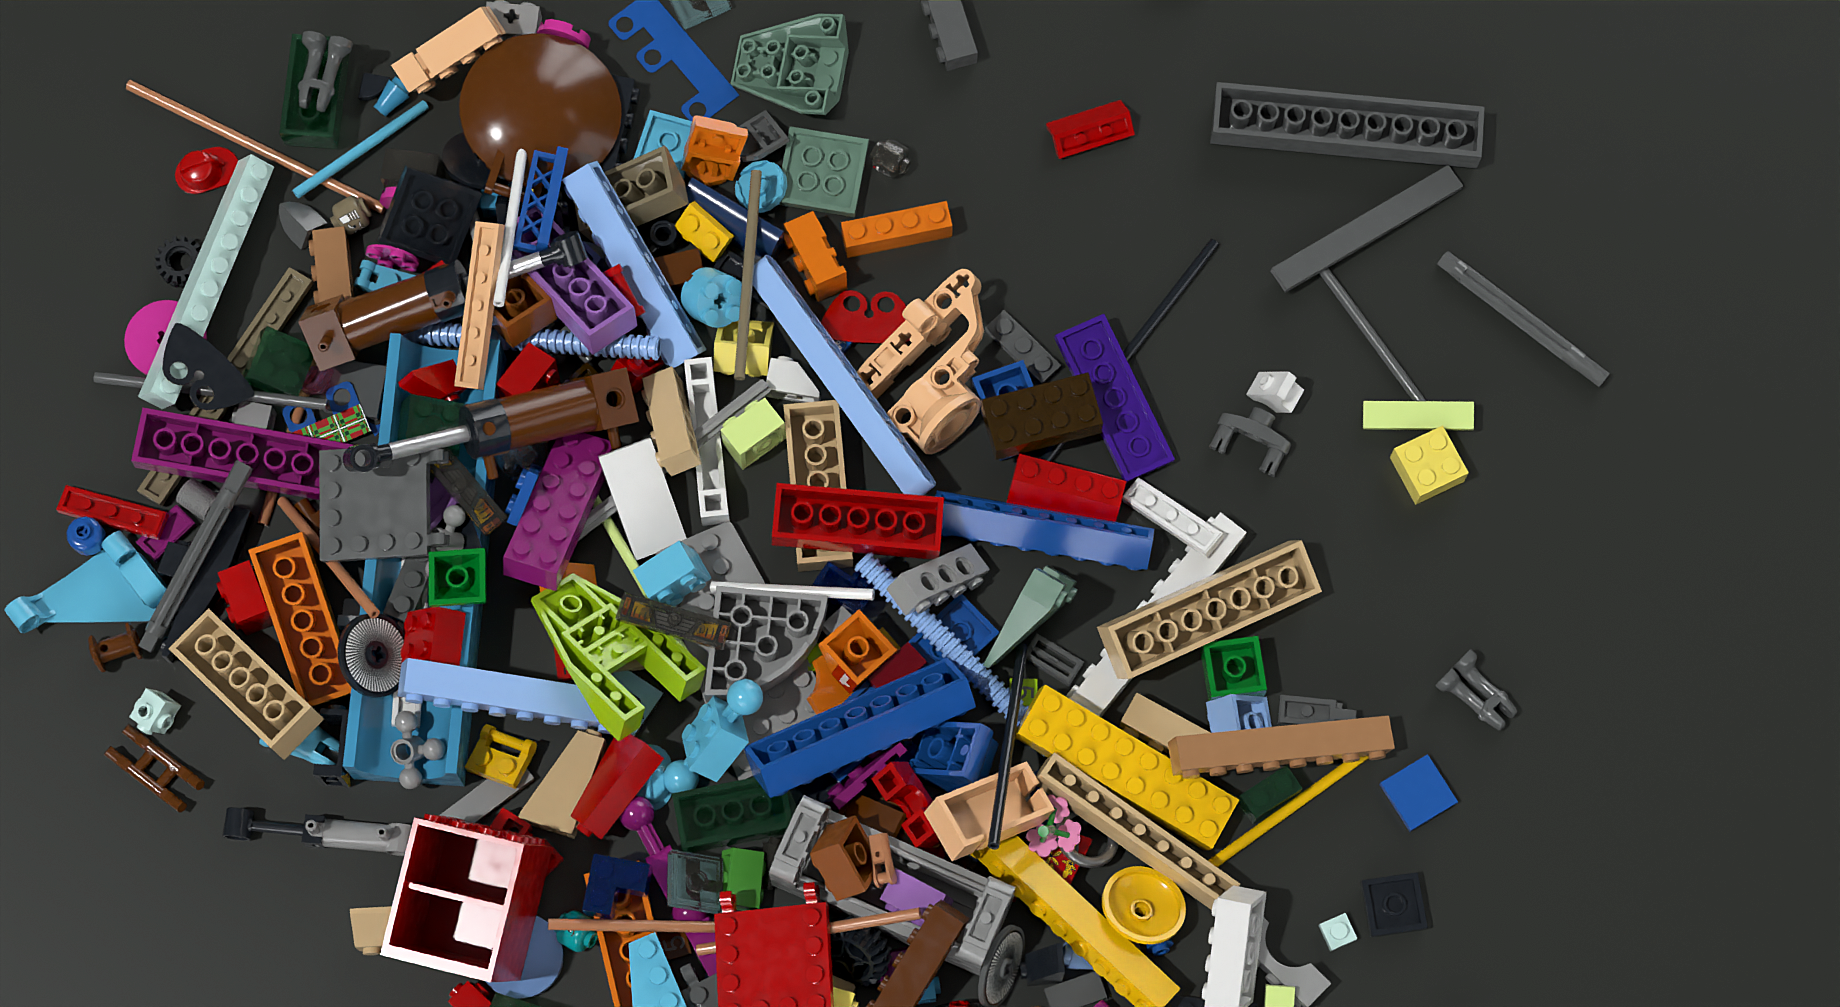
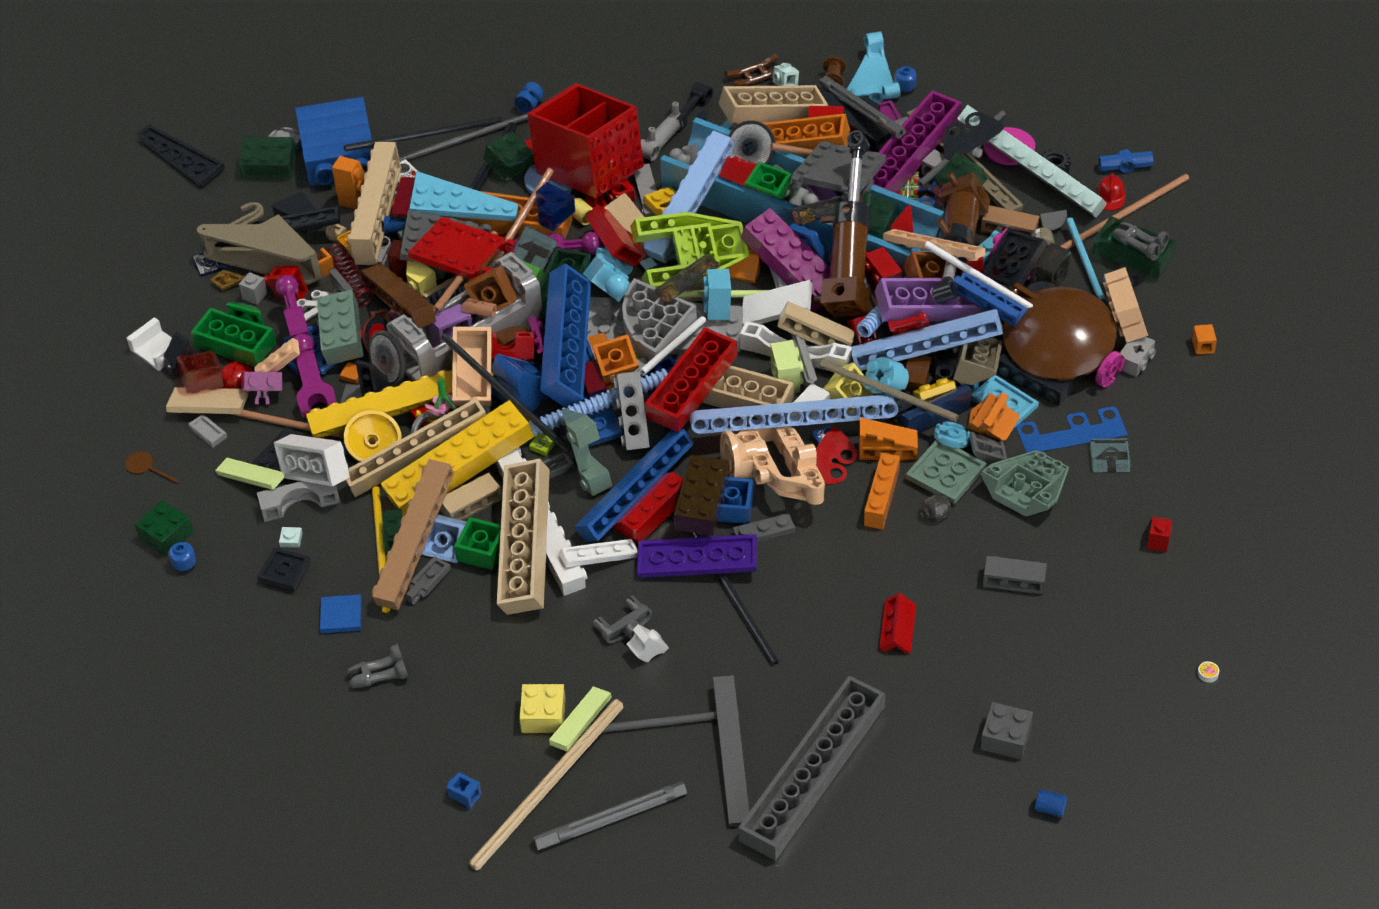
camera: 120 degrees right, 25 degrees down
(113, 512) = (914, 95): red tile -> none
(135, 170) = (1125, 161): none -> blue piece
(573, 867) = (582, 210): none -> light yellow piece
(1523, 406) = (545, 785): none -> tan axle
(1590, 488) = (464, 790): none -> blue brick

